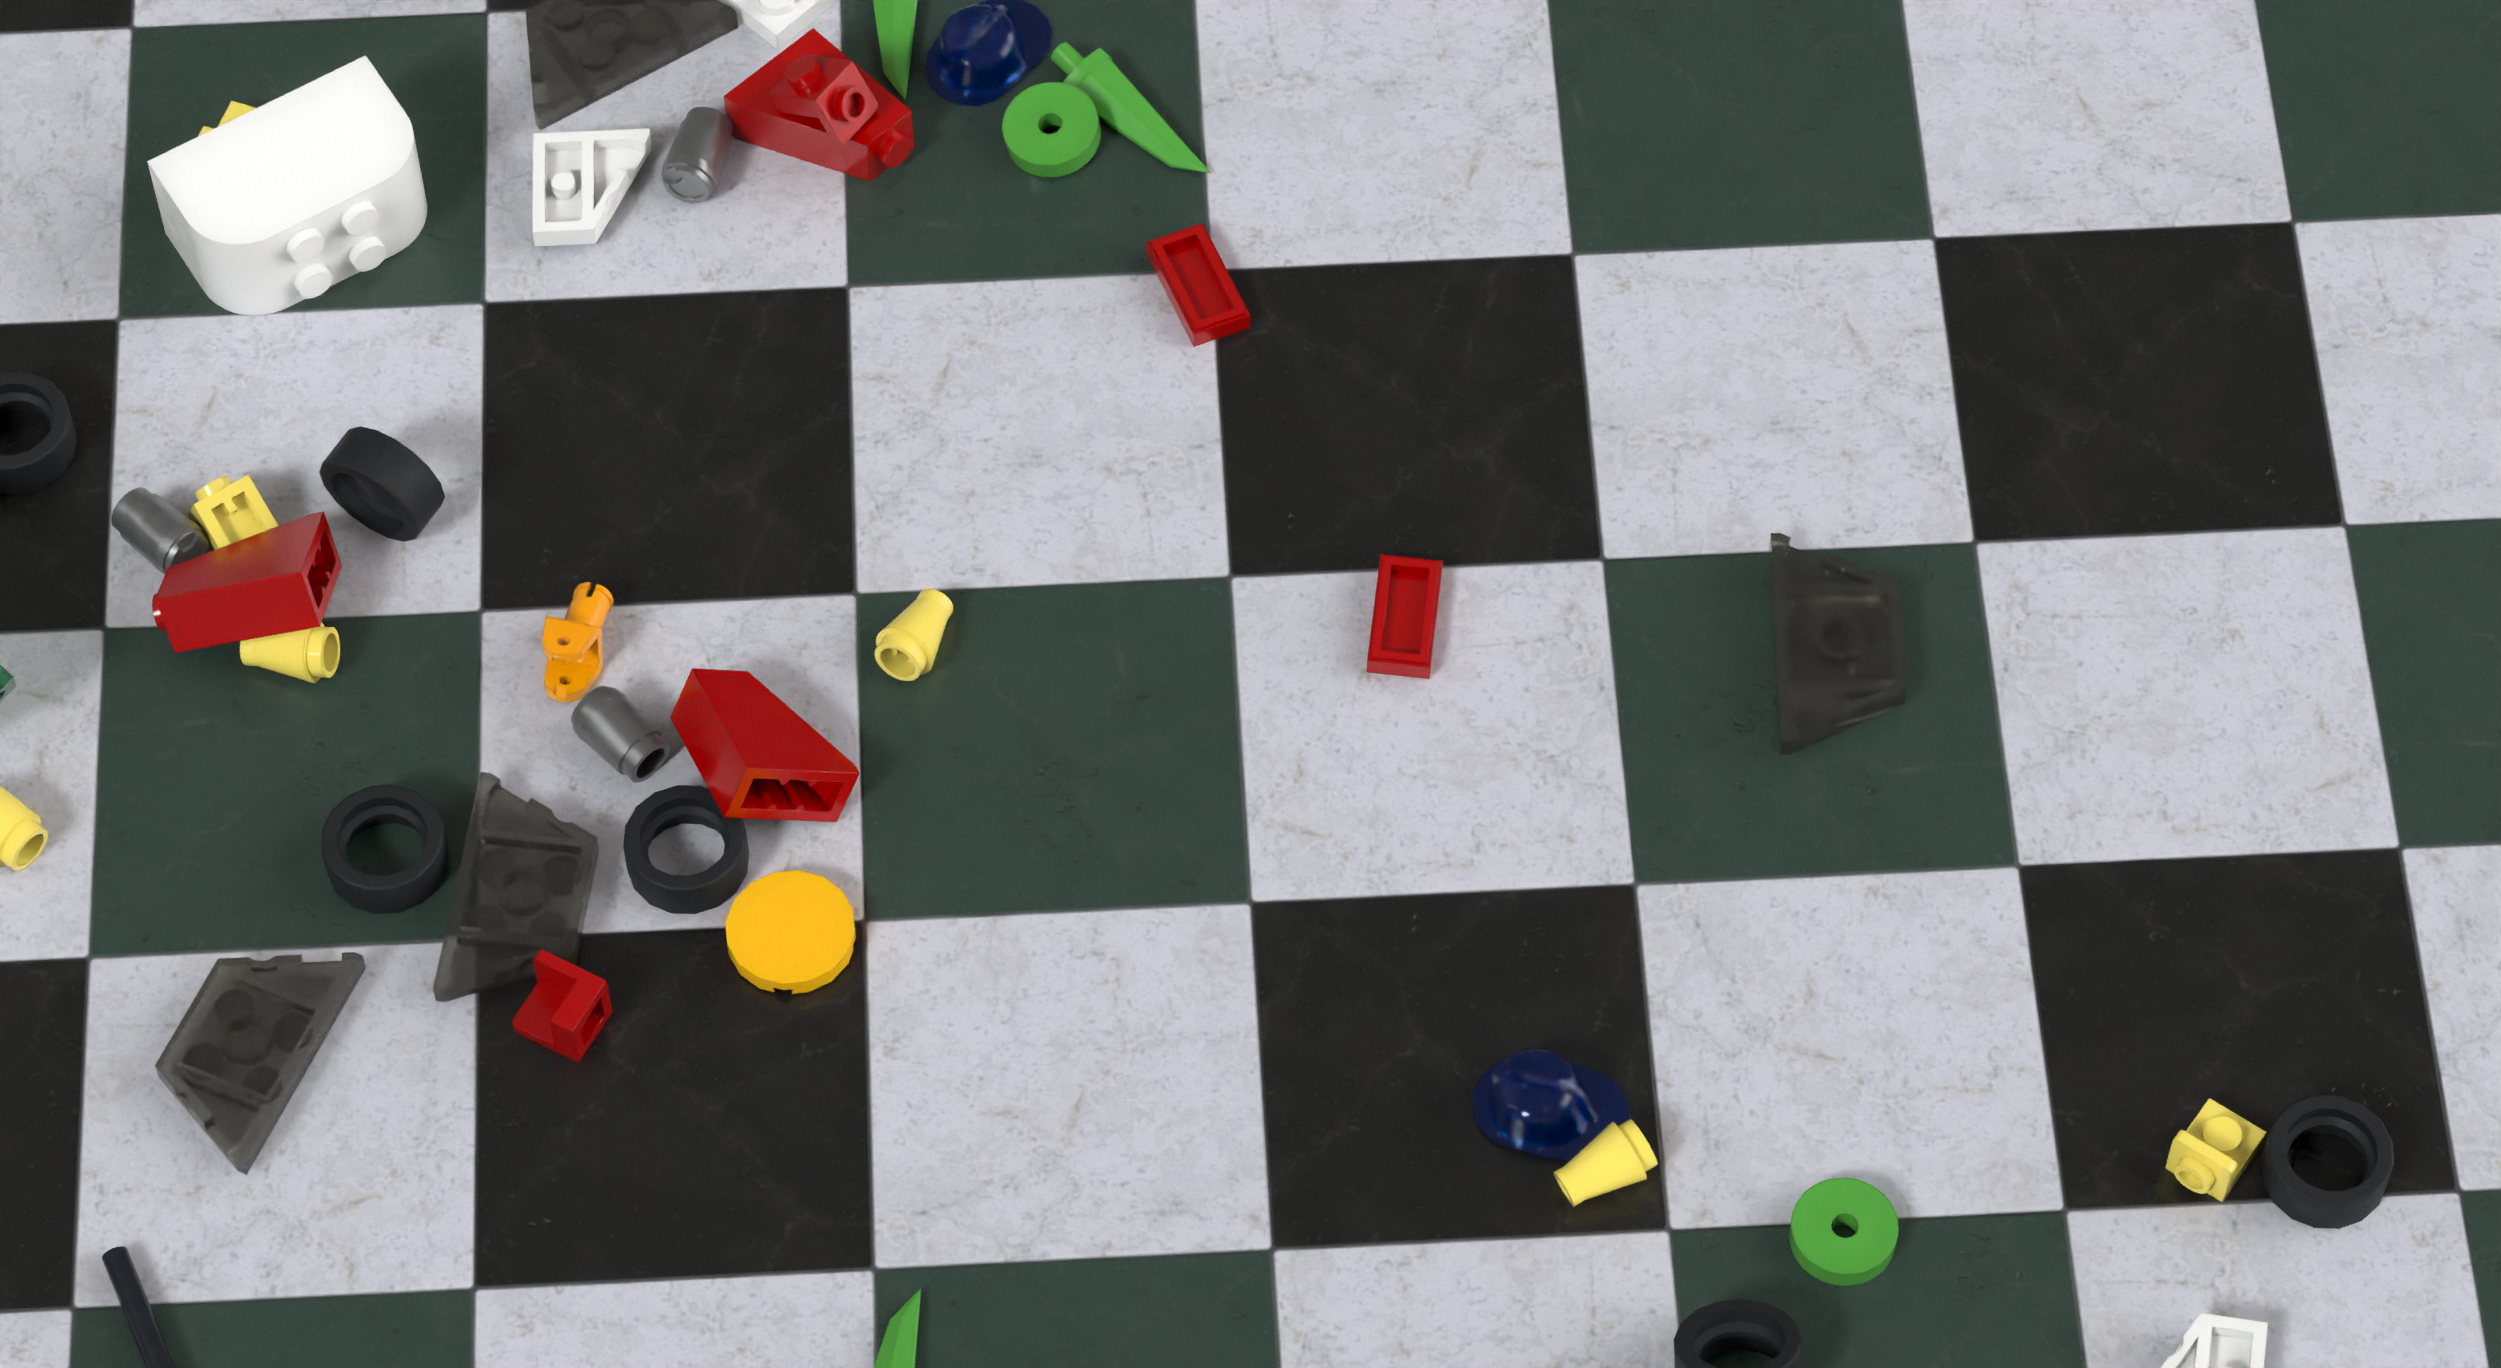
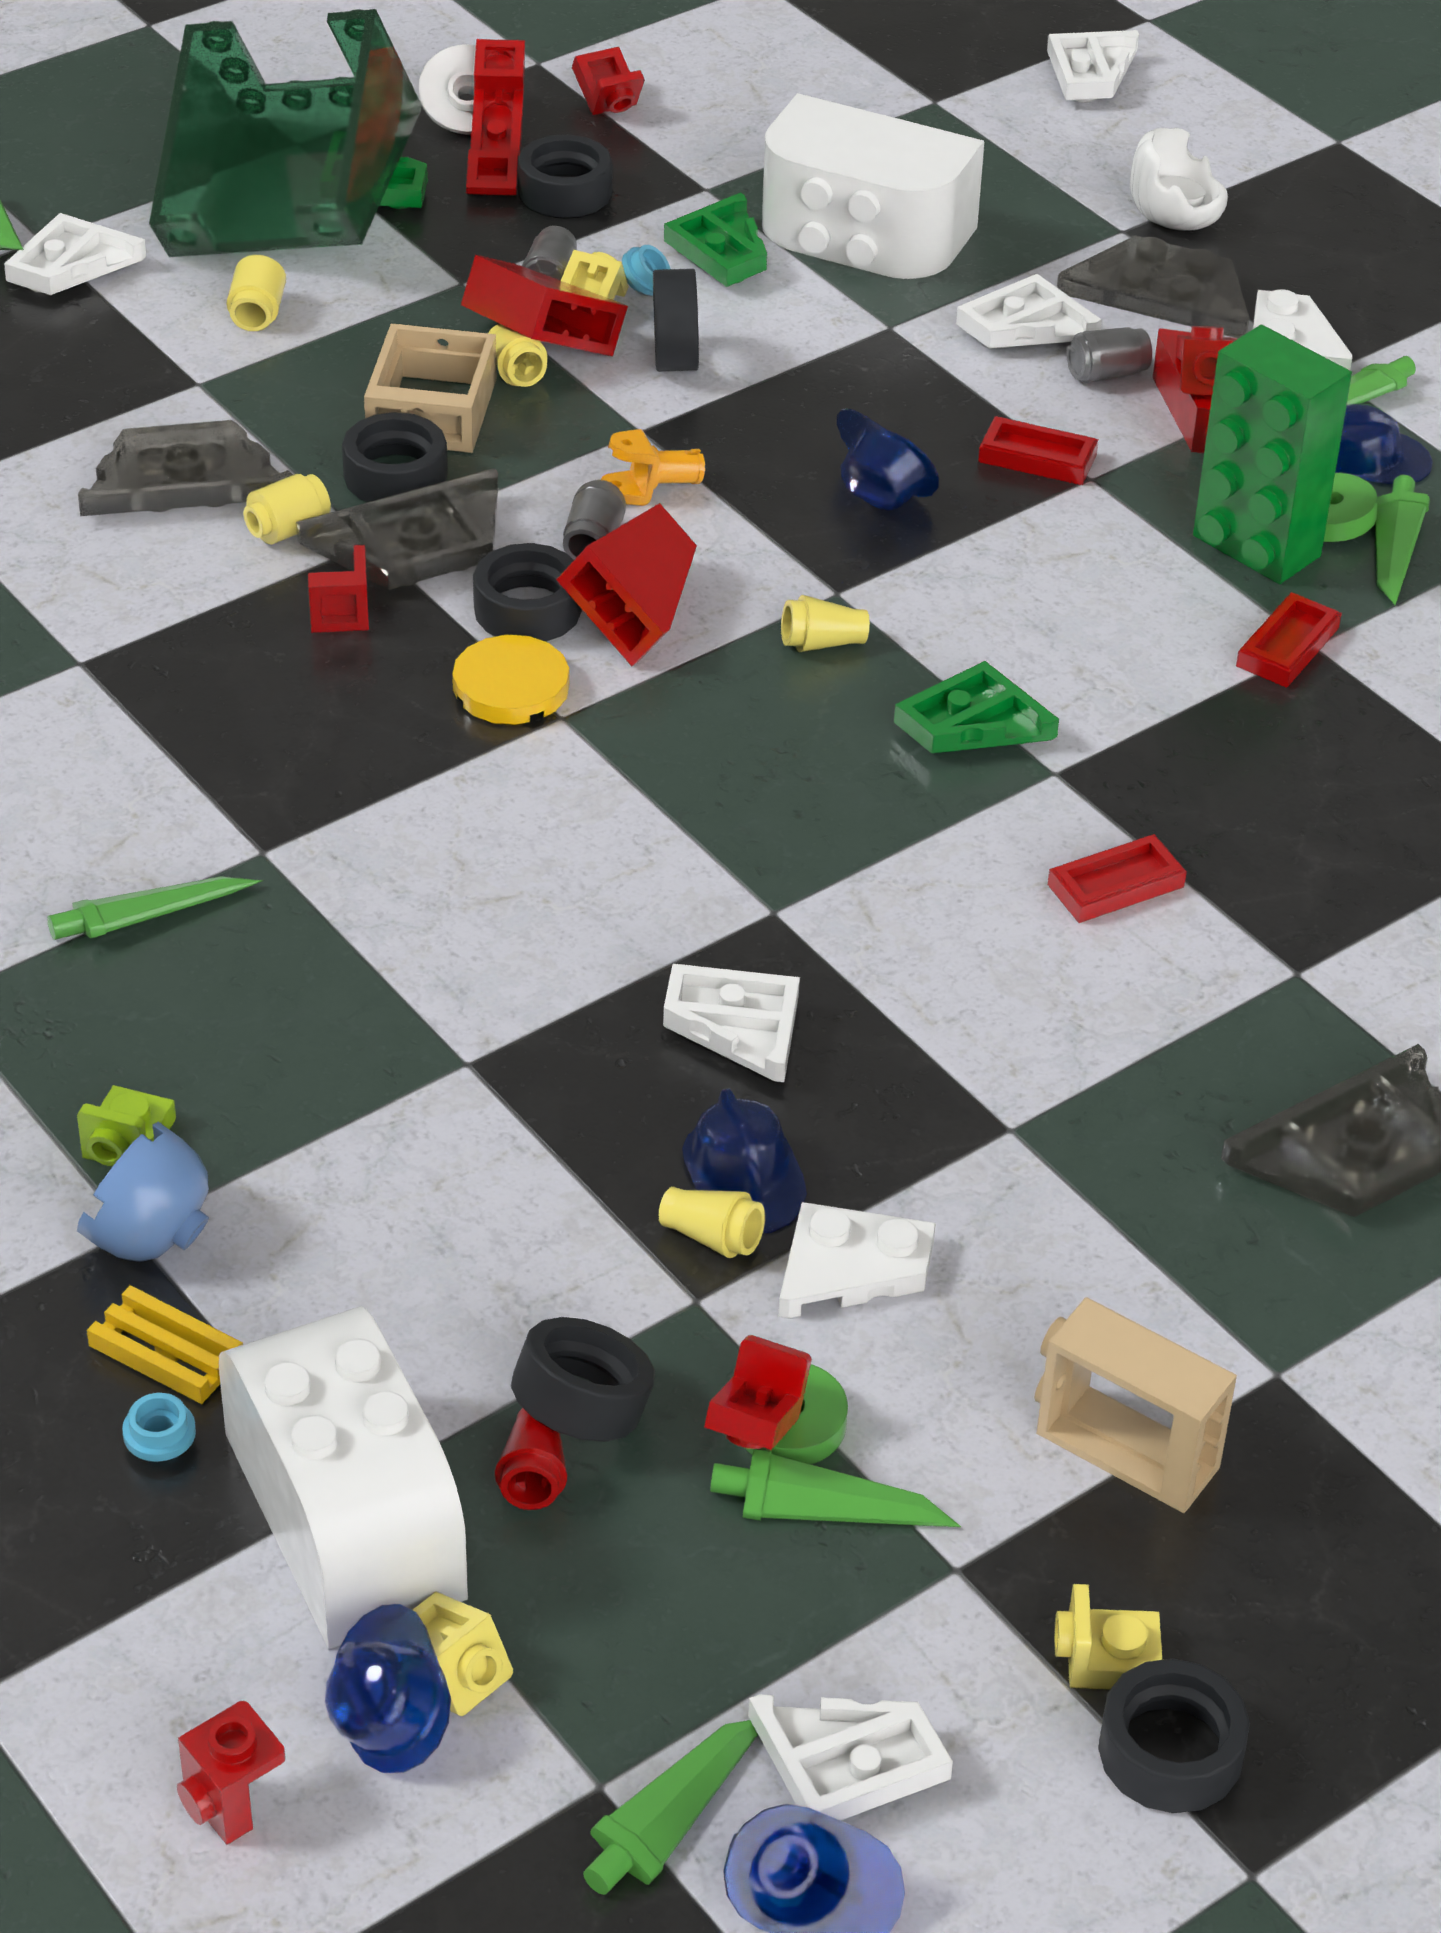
camera: 55 degrees right, 15 degrees down
(243, 454) = (639, 267): none -> medium azure plate
(245, 361) = (720, 240): none -> green wing
(267, 700) = (417, 354): none -> tan window
(395, 985) = (277, 507): none -> light yellow brick
(736, 454) = (882, 464): none -> clear blue piece
(782, 303) = (1038, 450): none -> red tile
(1040, 147) = (1271, 453): none -> green brick
(1126, 589) = (974, 712): none -> green wing
(1380, 1007) = (735, 1014): none -> white wing
(1707, 1088) = (854, 1257): none -> white wing
(1849, 1244) = (762, 1395): none -> red bracket
(1929, 1269) = (800, 1491): none -> bright green bar
(2030, 986) = (1116, 1438): none -> tan window

